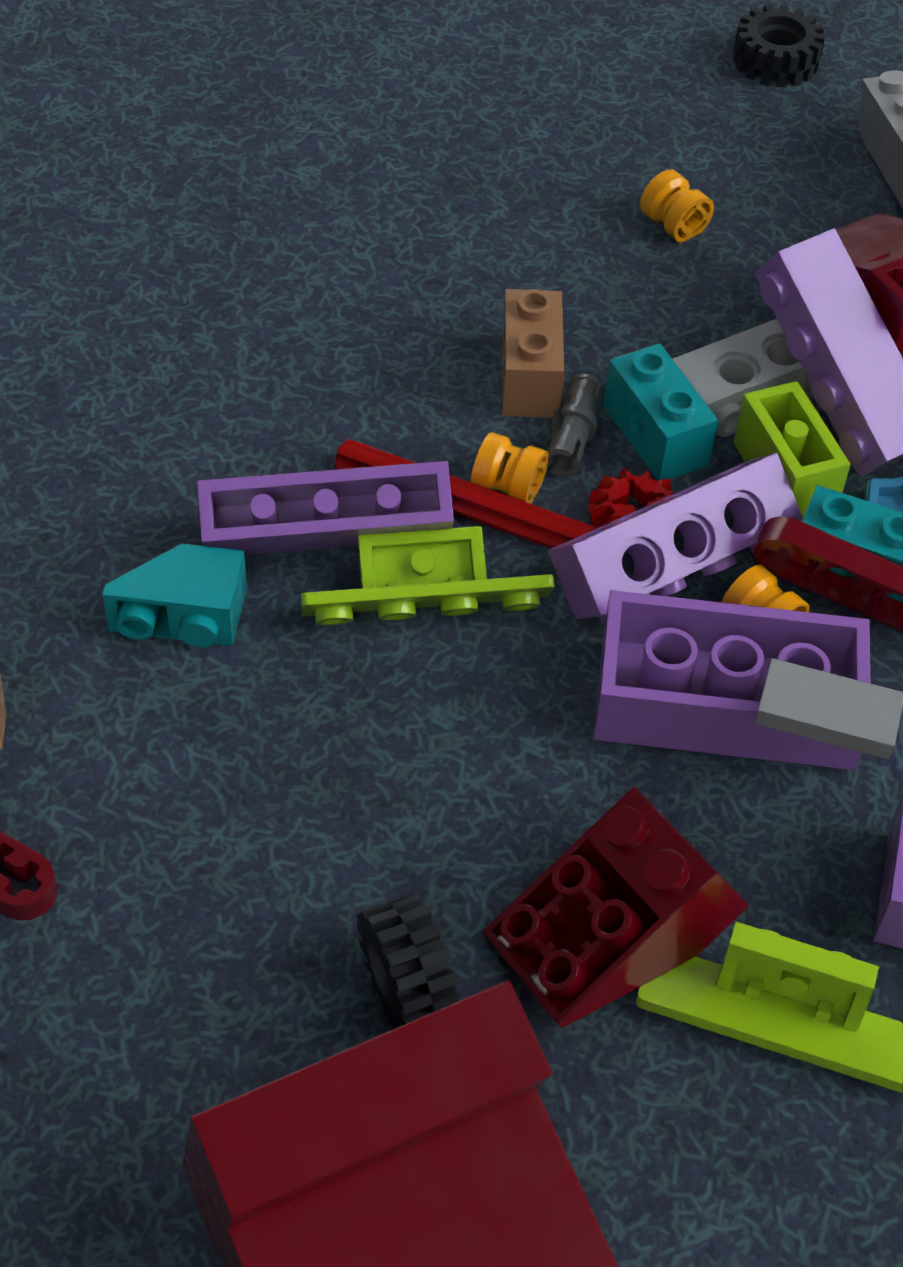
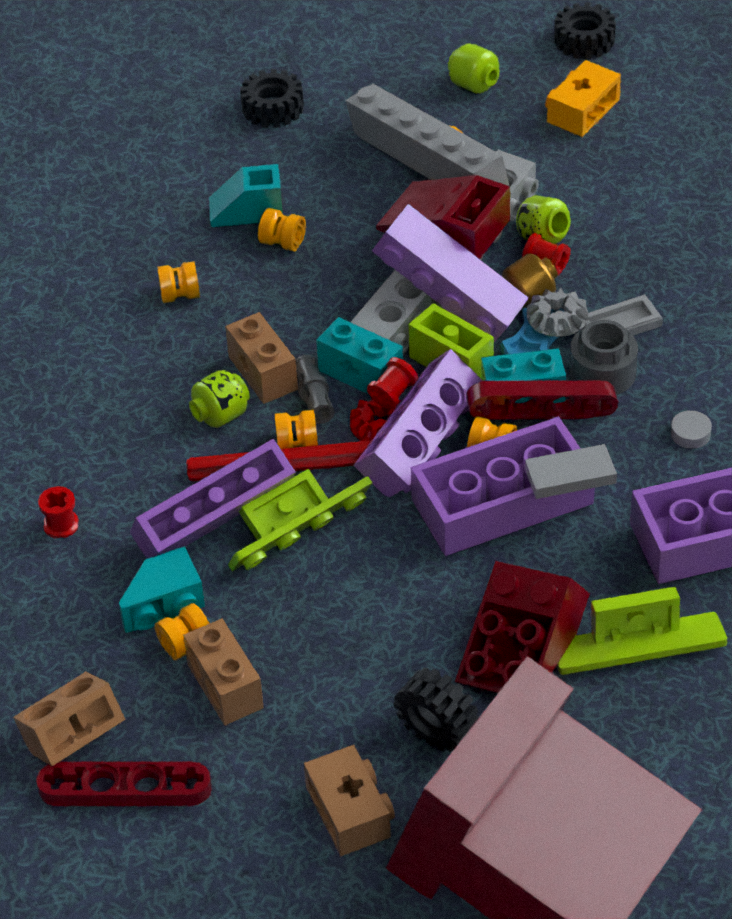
camera: 25 degrees left, 5 degrees down
(137, 424) = (58, 506): none -> red bush
(153, 666) = (171, 630): none -> light orange wheel
(172, 750) = (223, 671): none -> medium nougat brick
(198, 990) = (348, 799): none -> medium nougat brick
(440, 380) = (219, 398): none -> lime head
(500, 213) = (187, 282): none -> light orange wheel
(660, 142) = (246, 196): none -> teal slope
(672, 463) = (392, 383): none -> red bush

